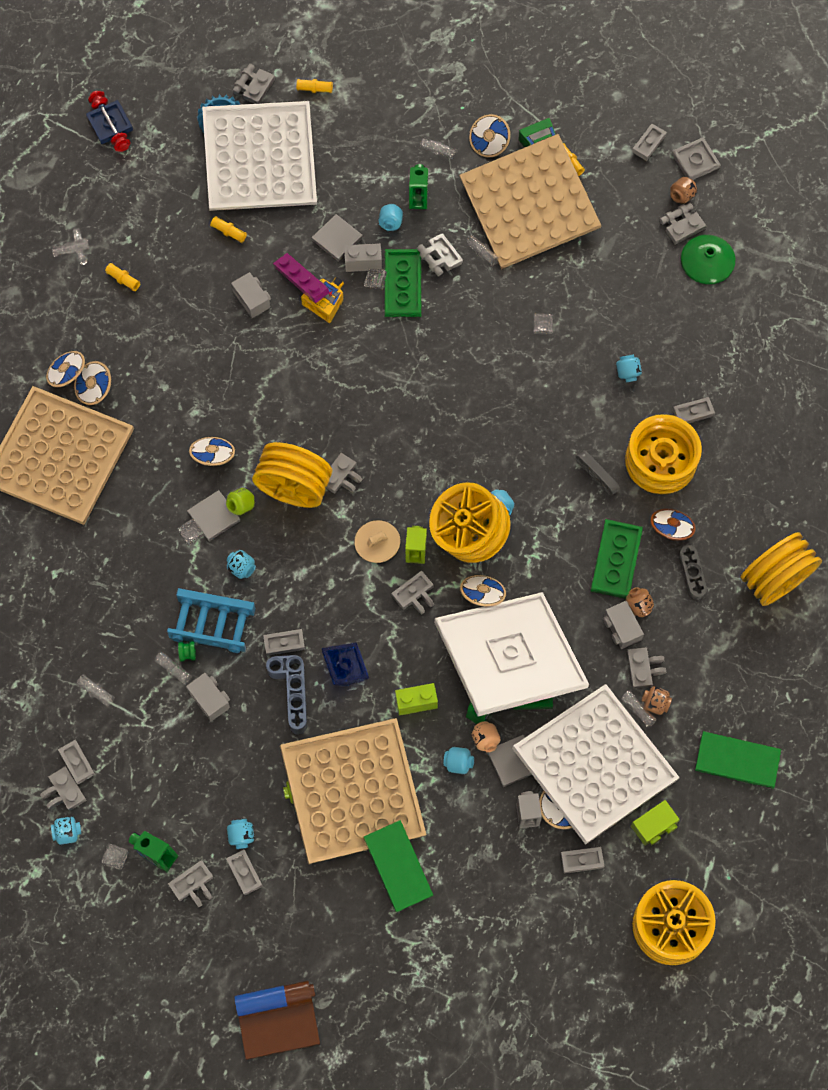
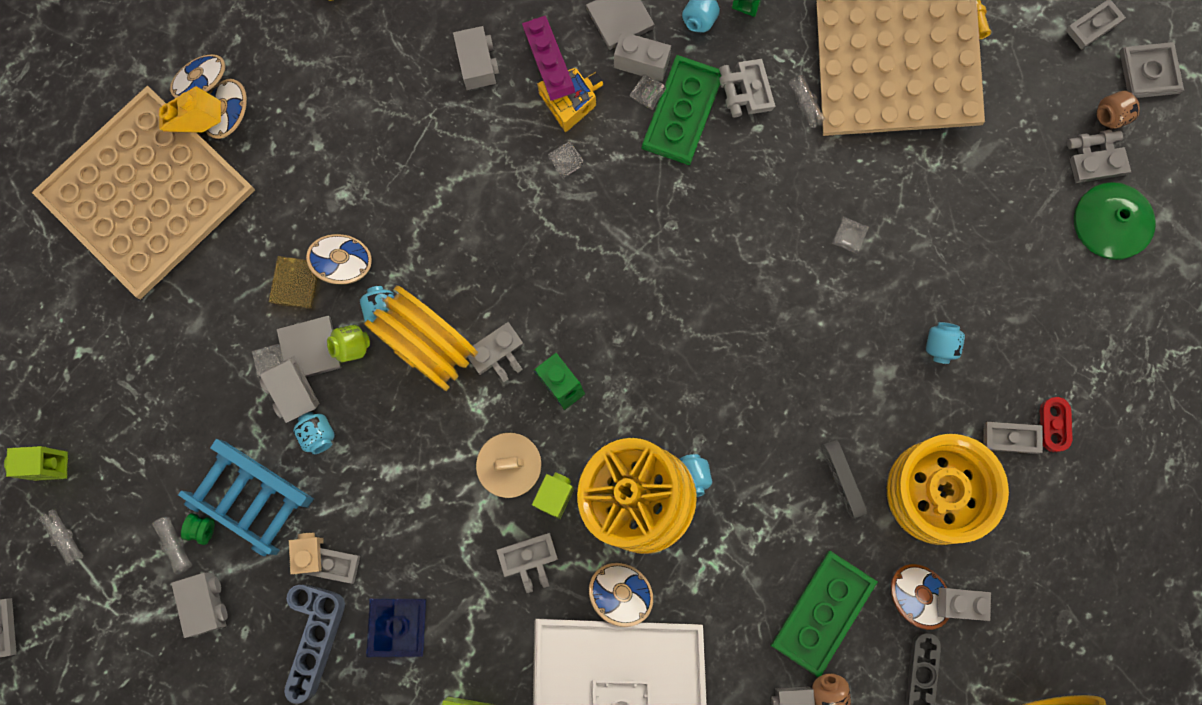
camera: 25 degrees right, 10 degrees up
(62, 646) = (36, 463): none -> lime brick
(73, 391) = (190, 112): none -> yellow slope
(186, 477) = (293, 283): none -> clear yellow piece
(213, 542) = (288, 389): none -> light grey brick
(247, 470) = (374, 300): none -> medium azure head
(267, 639) = (305, 554): none -> tan bracket
(337, 339) = (566, 159): none -> clear plate
(388, 474) = (559, 381): none -> green torso
(701, 519) = (964, 604): none -> light grey plate
(717, 395) = (1058, 425): none -> red plate

